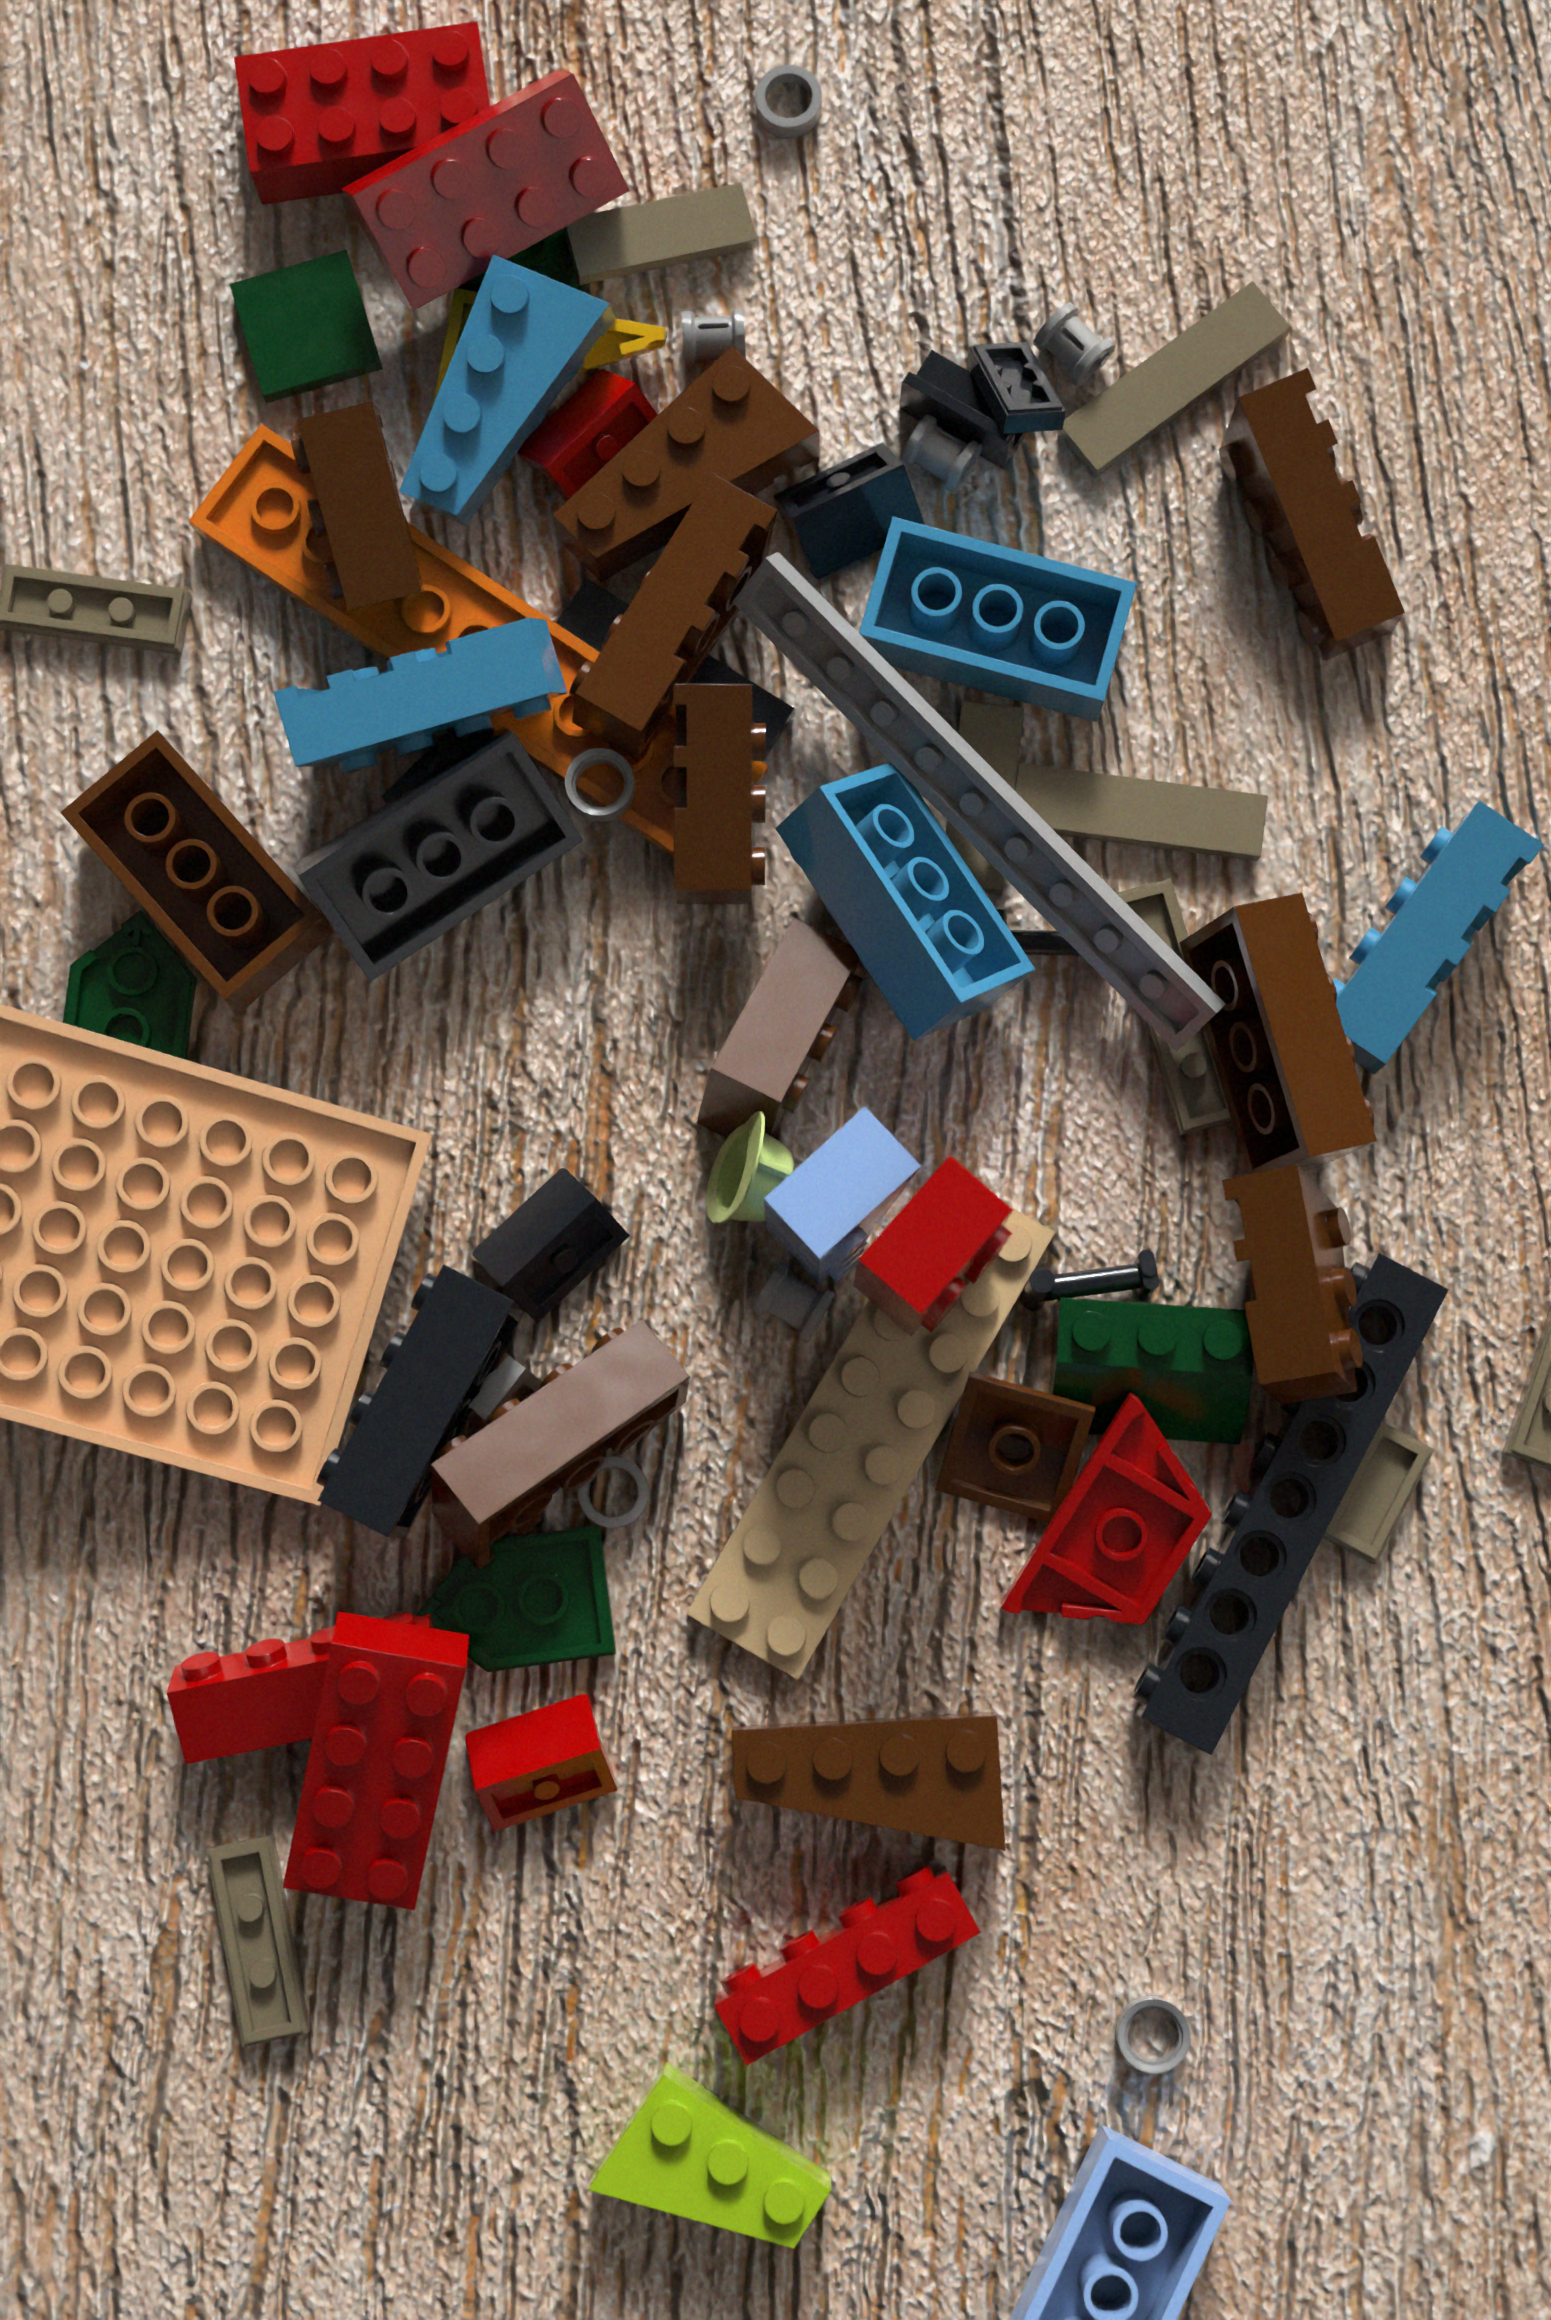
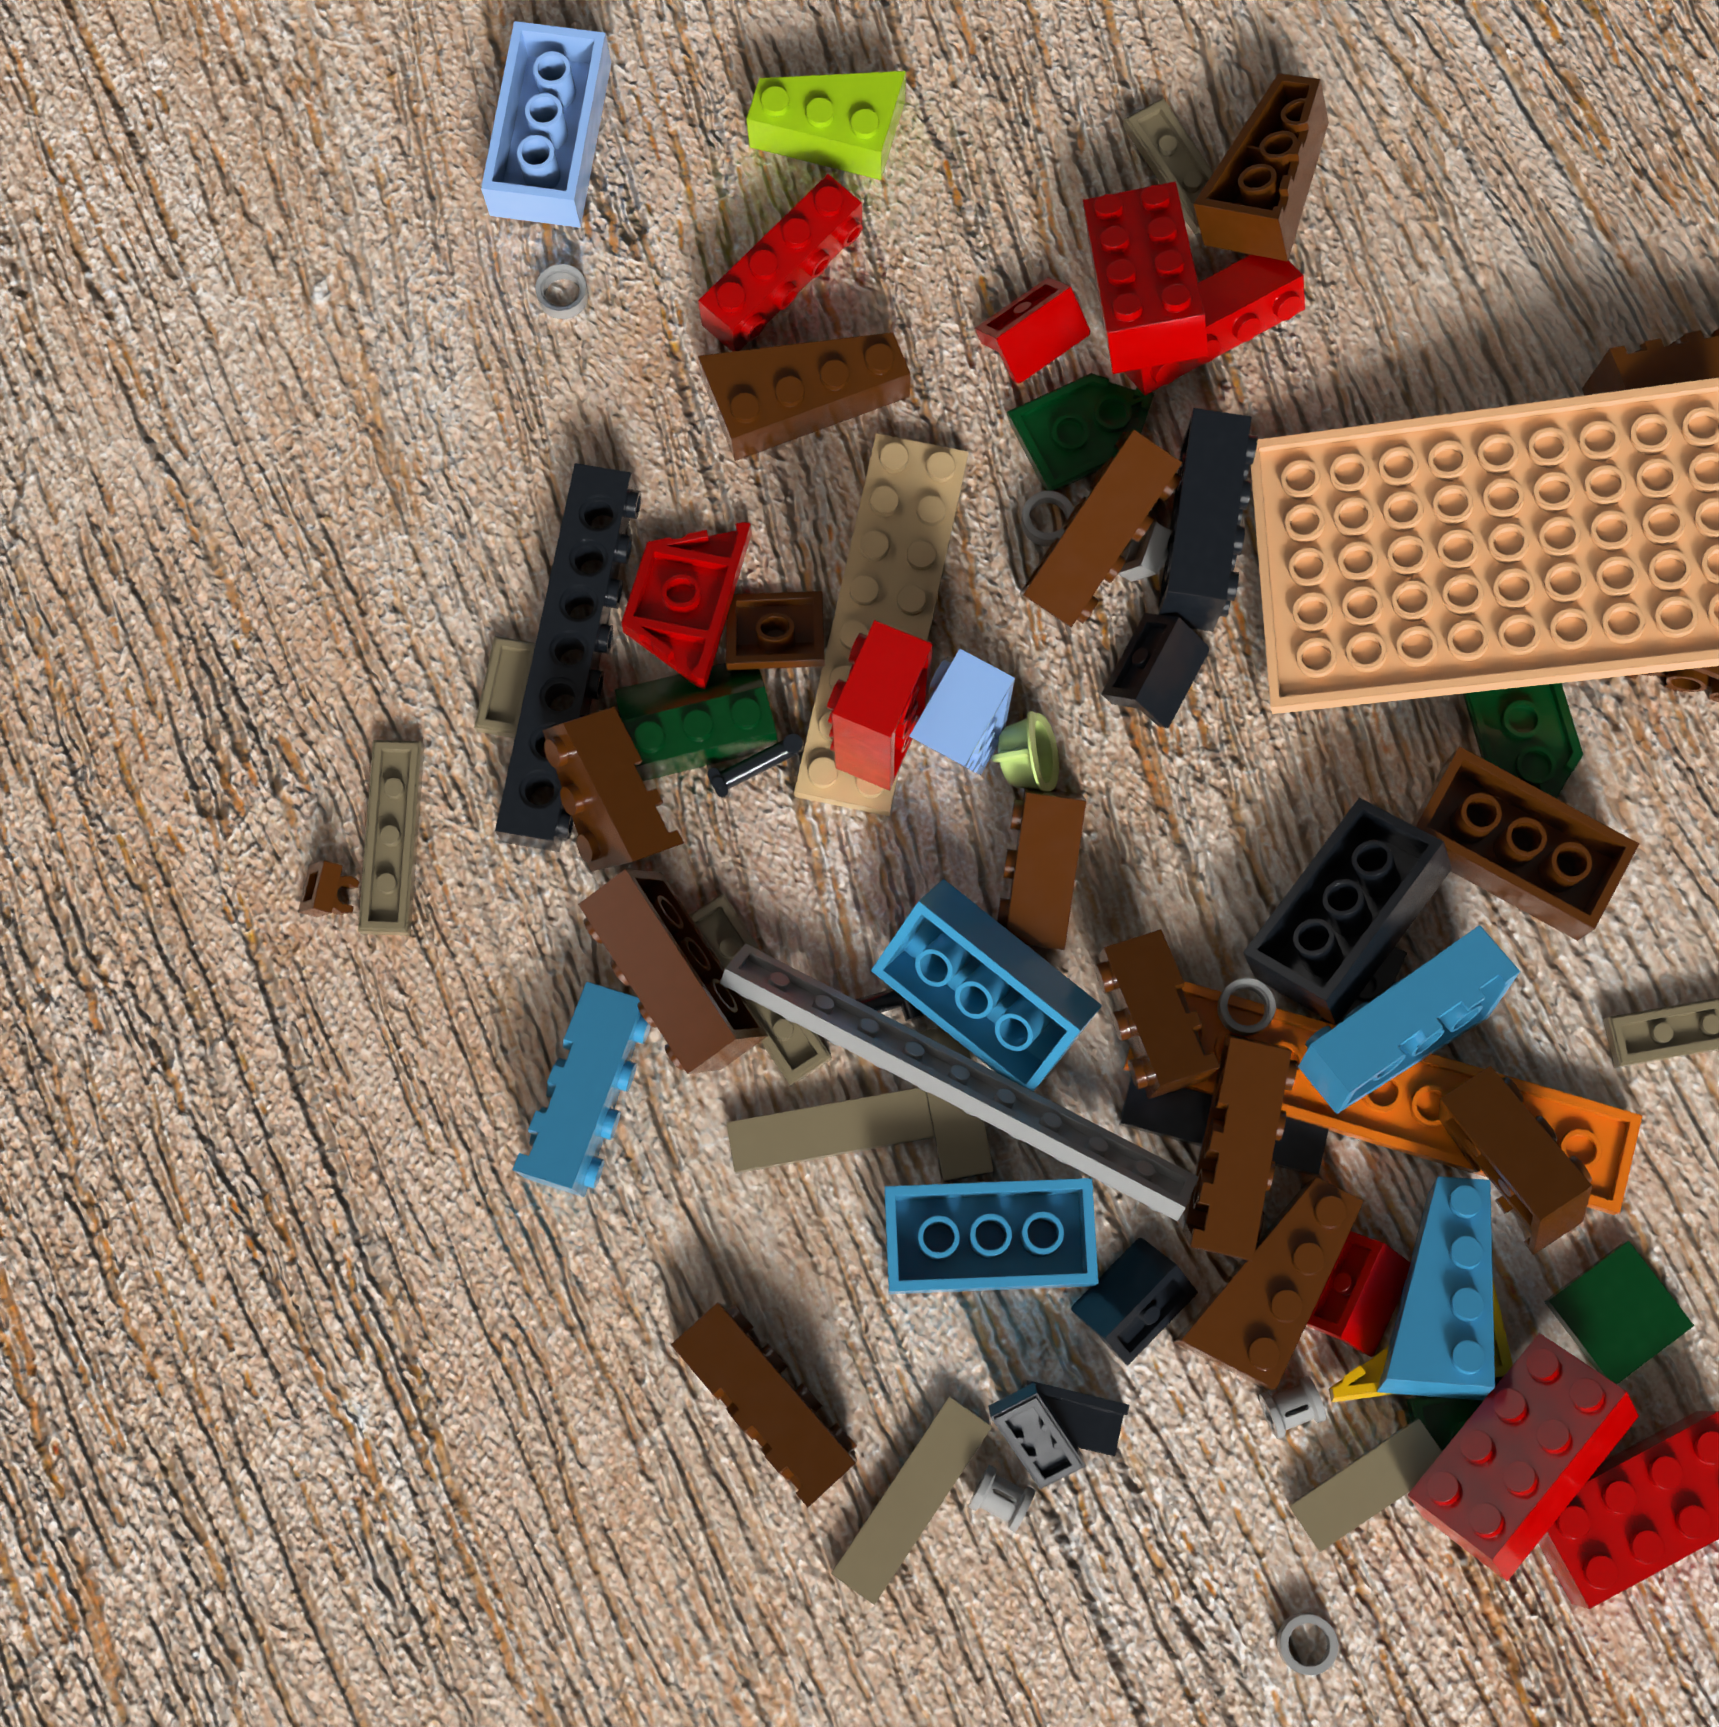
camera: 160 degrees right, 5 degrees down
(155, 1862) = (1267, 172): none -> reddish brown wedge
(941, 453) = (1077, 1368): light grey bush -> none

